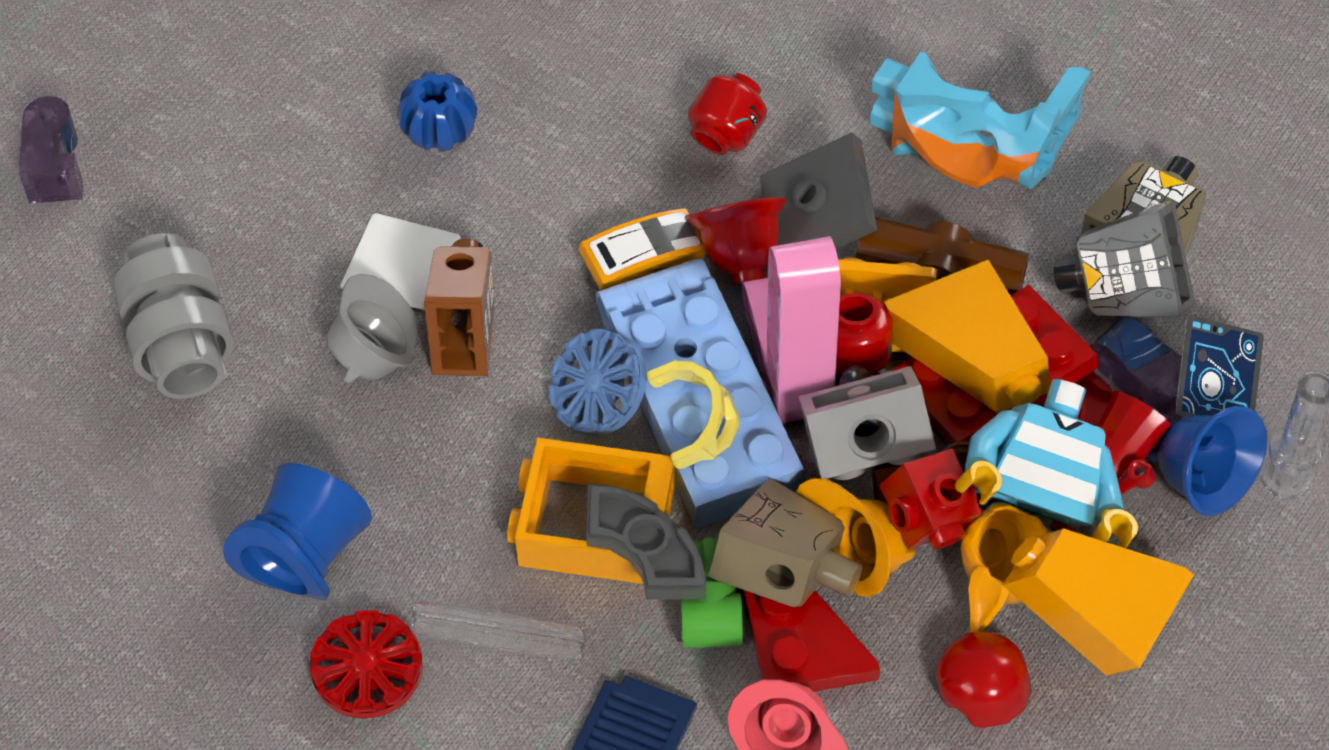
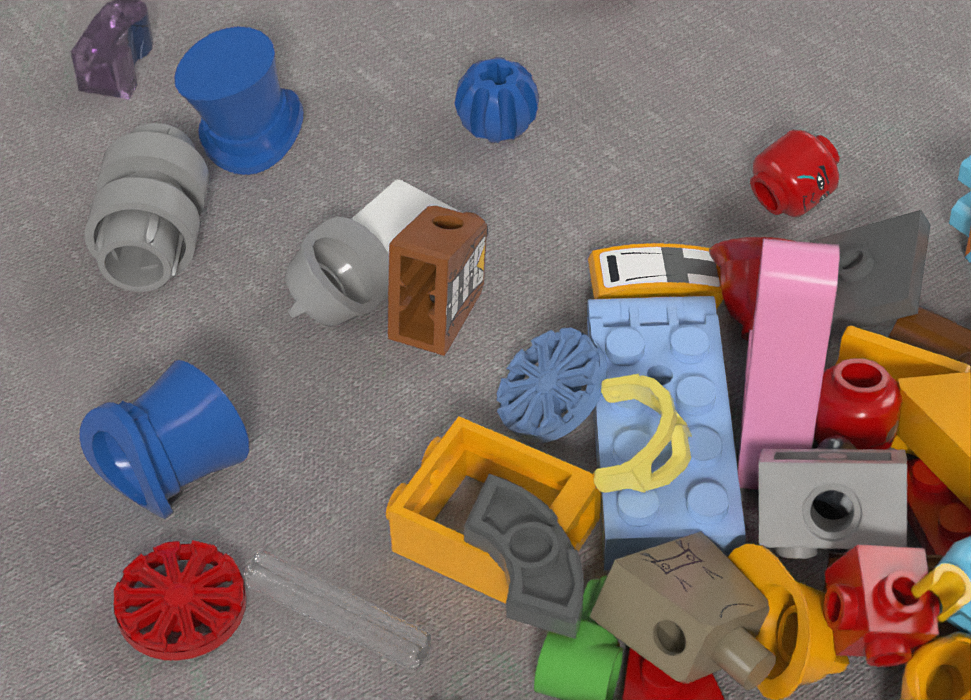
camera: 20 degrees right, 10 degrees down
(208, 185) = (237, 92): none -> blue hat

